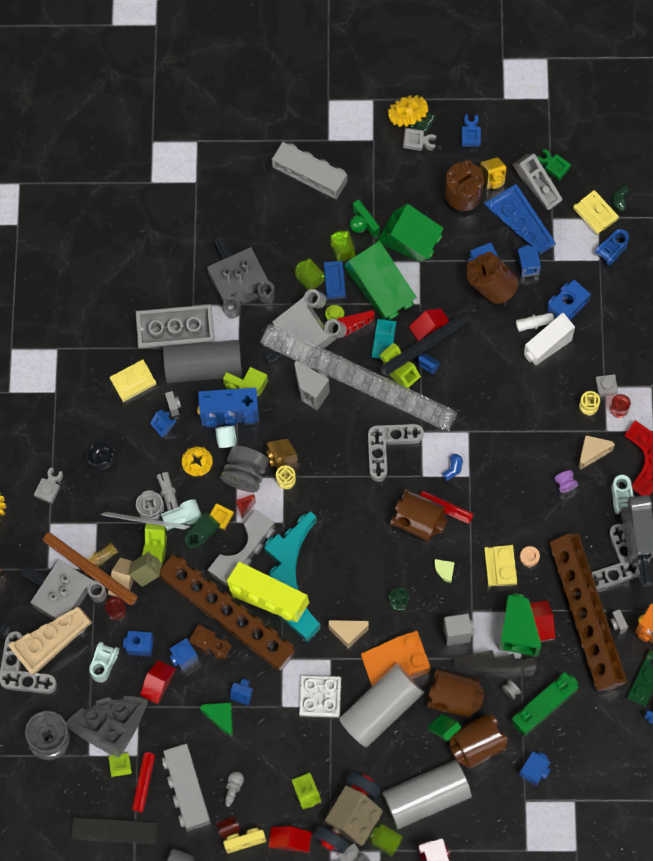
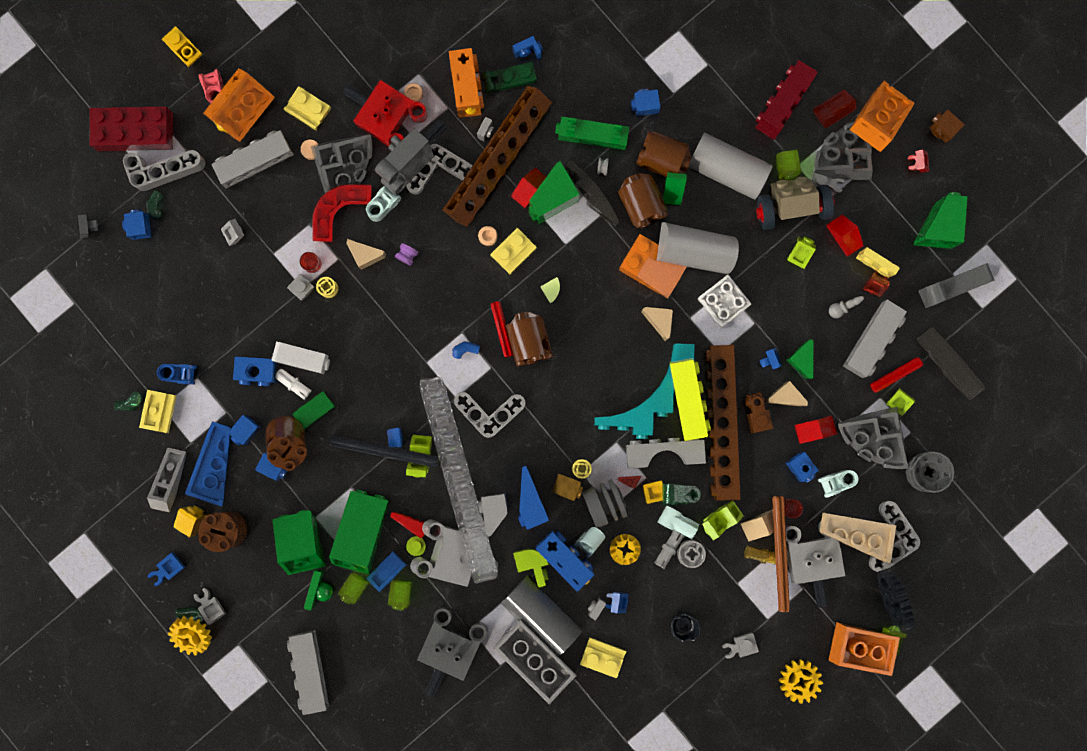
camera: 135 degrees left, 15 degrees up
(145, 520) = (708, 544): white sticker -> none
(145, 569) = (746, 510): olive brick -> none
(183, 654) = (783, 426): blue brick -> none
(203, 679) = (787, 395): none -> tan slope
(291, 416) = (531, 507): none -> blue slope
(383, 336) = (404, 490): teal slope -> none
(398, 594) = (604, 301): clear green wheel -> none
(428, 323) = (363, 464): red slope -> none
(458, 629) = (592, 237): light grey brick -> none
(502, 321) = (314, 410): none -> green tile
(554, 166) = (141, 475): green plate -> none

